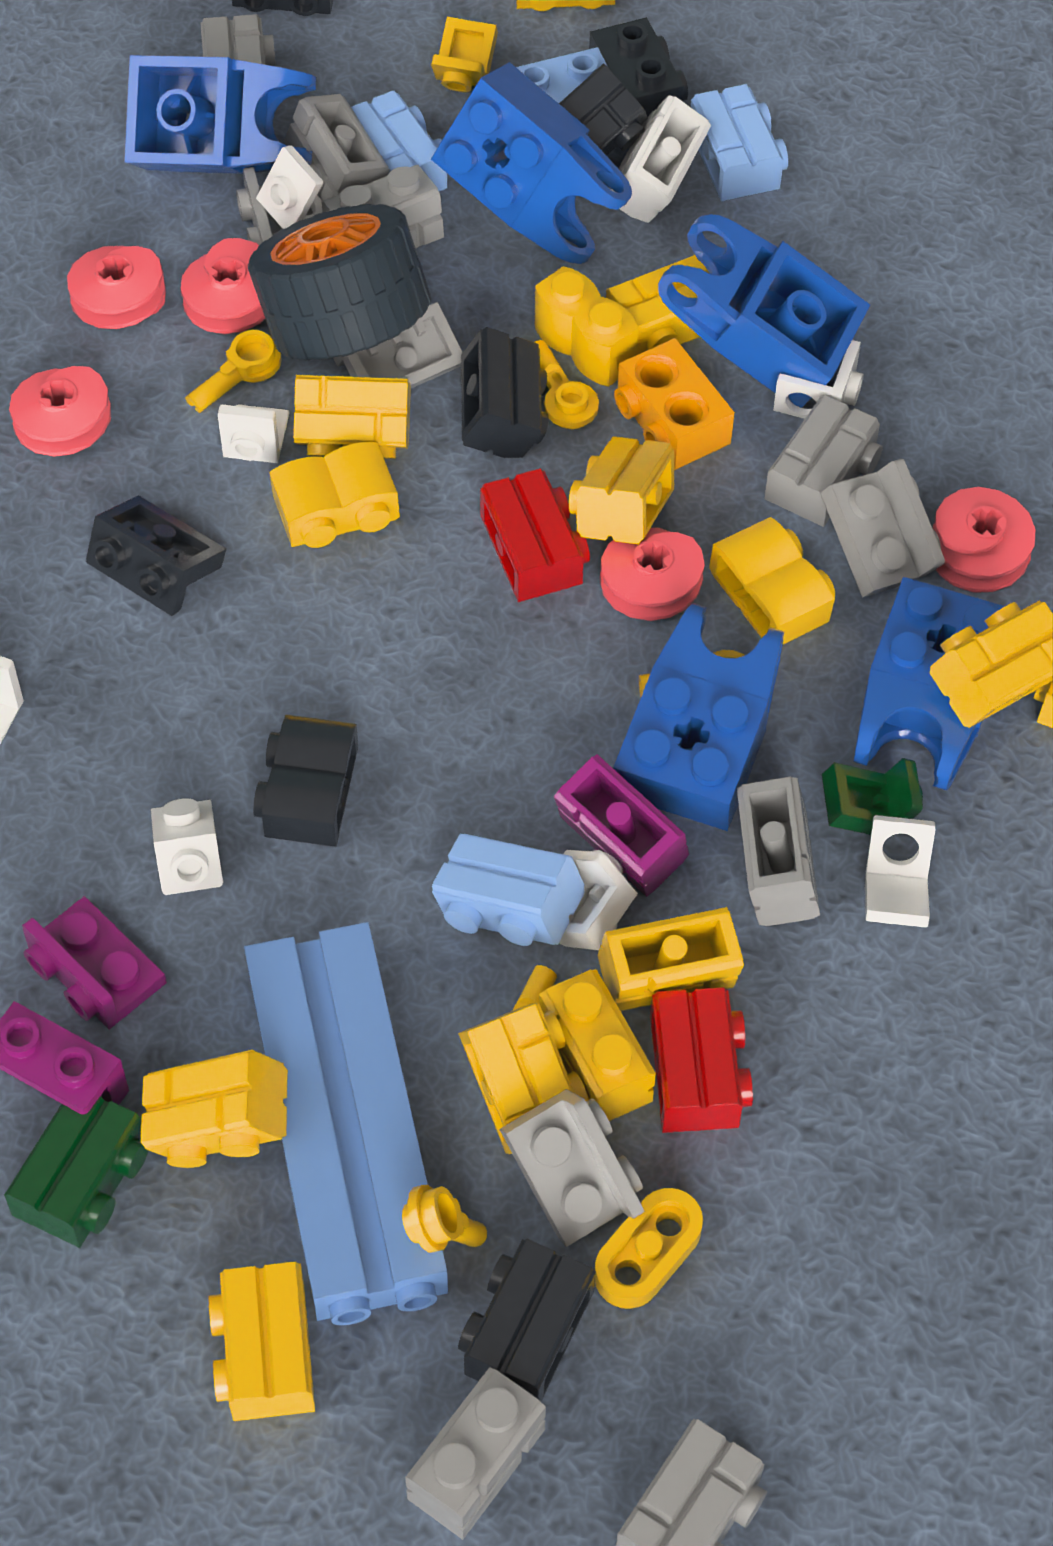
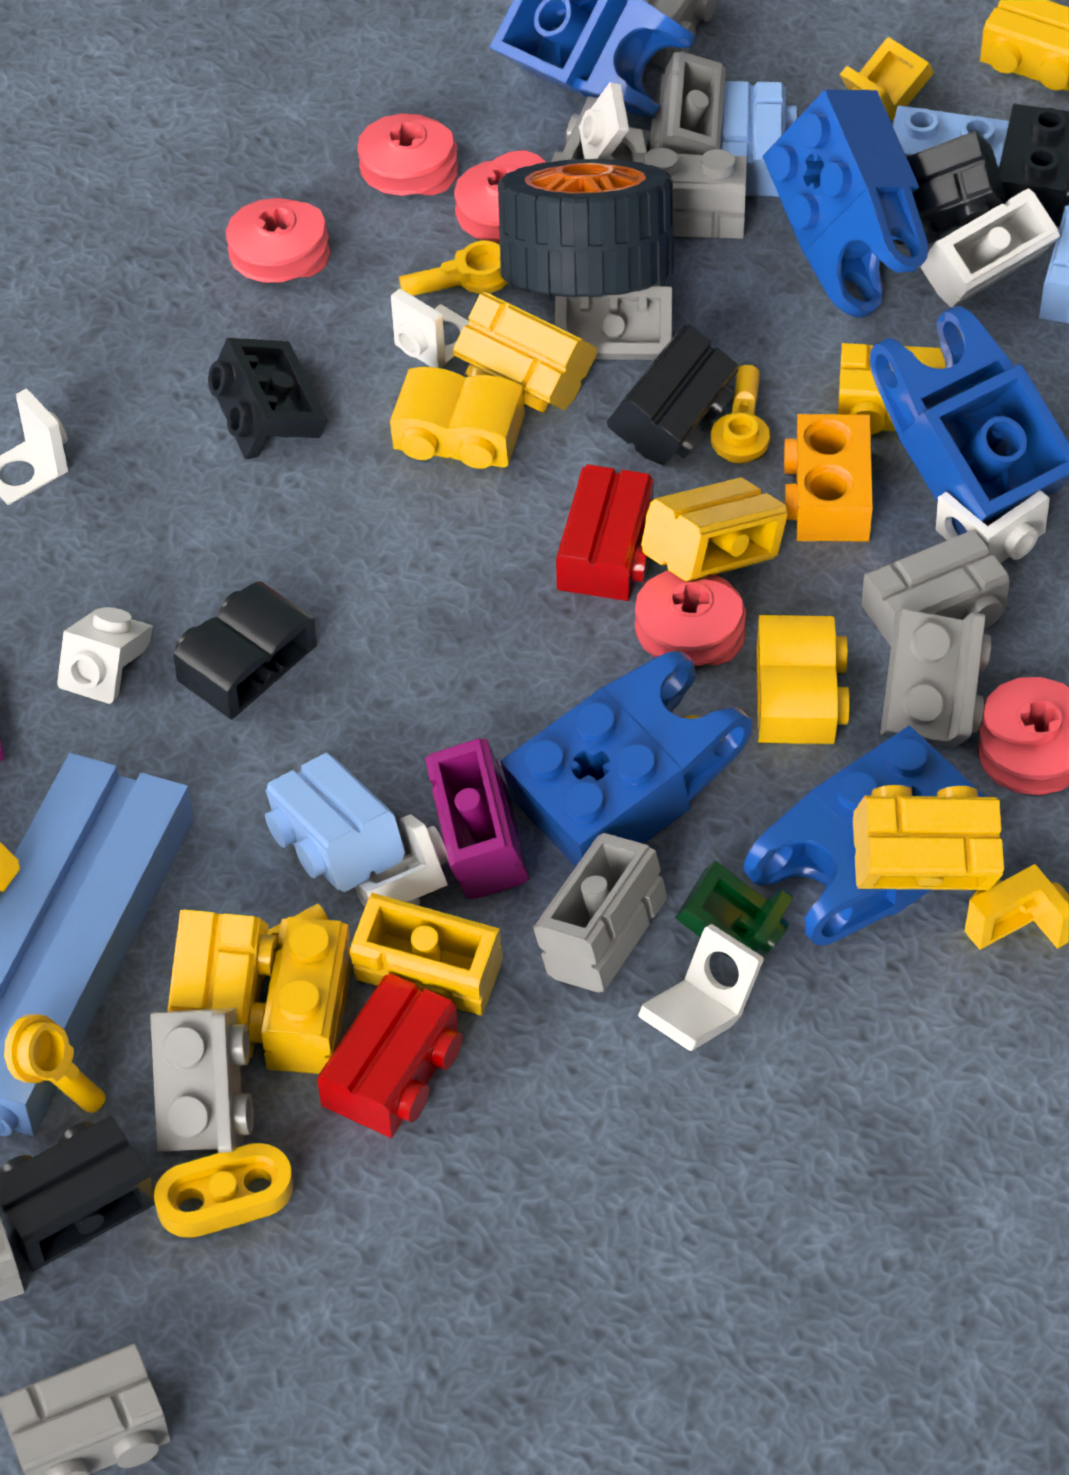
camera: 35 degrees right, 5 degrees down
(584, 325) = (800, 364): yellow brick -> none

